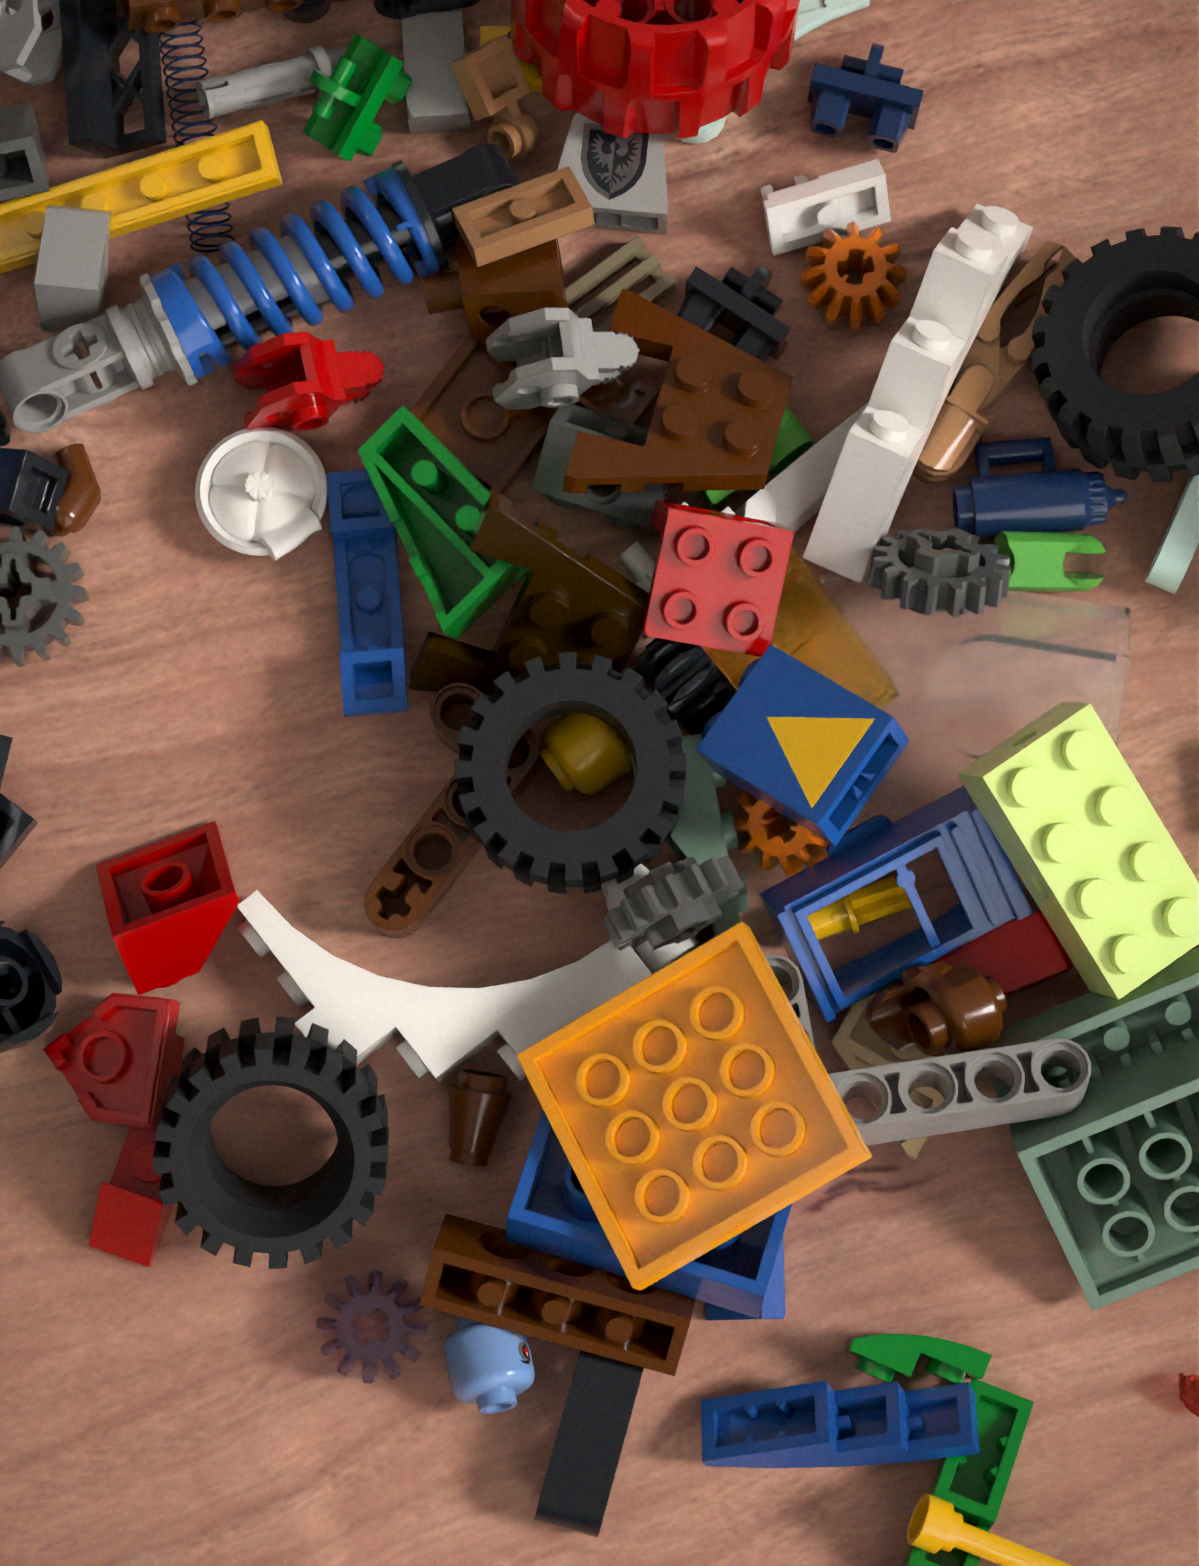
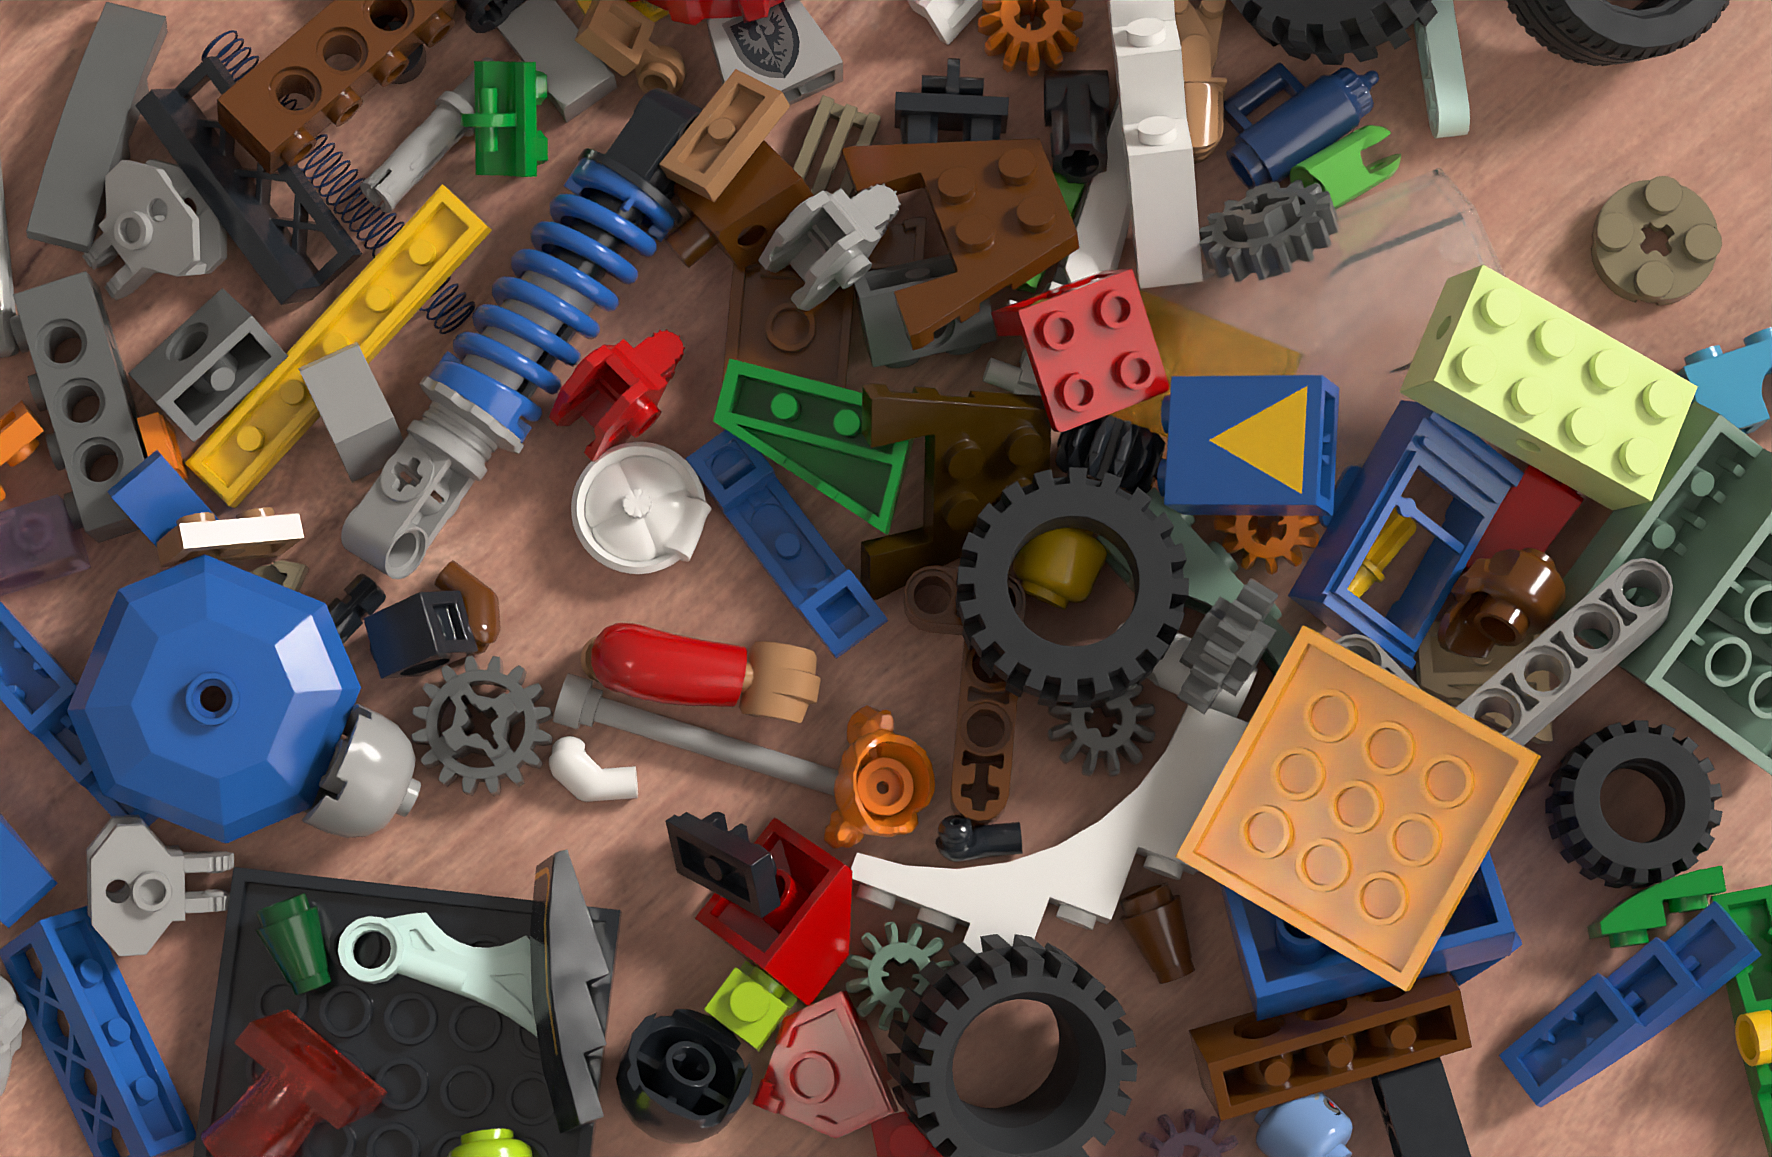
camera: 35 degrees left, 0 degrees up
(76, 691) = (585, 778): none -> white arm
(88, 966) = (751, 1004): none -> lime brick
(113, 628) = (584, 705): none -> light grey piece
(144, 829) = (724, 861): none -> black plate
(216, 655) = (687, 671): none -> red piece
(226, 993) = (901, 955): none -> sand green gear
(313, 821) = (872, 758): none -> orange hair
(355, 936) = (964, 842): none -> black arm
(535, 932) = (1090, 740): none -> dark grey gear
(838, 383) = (1078, 117): none -> black piece
(1006, 1244) = (1677, 775): none -> black tyre

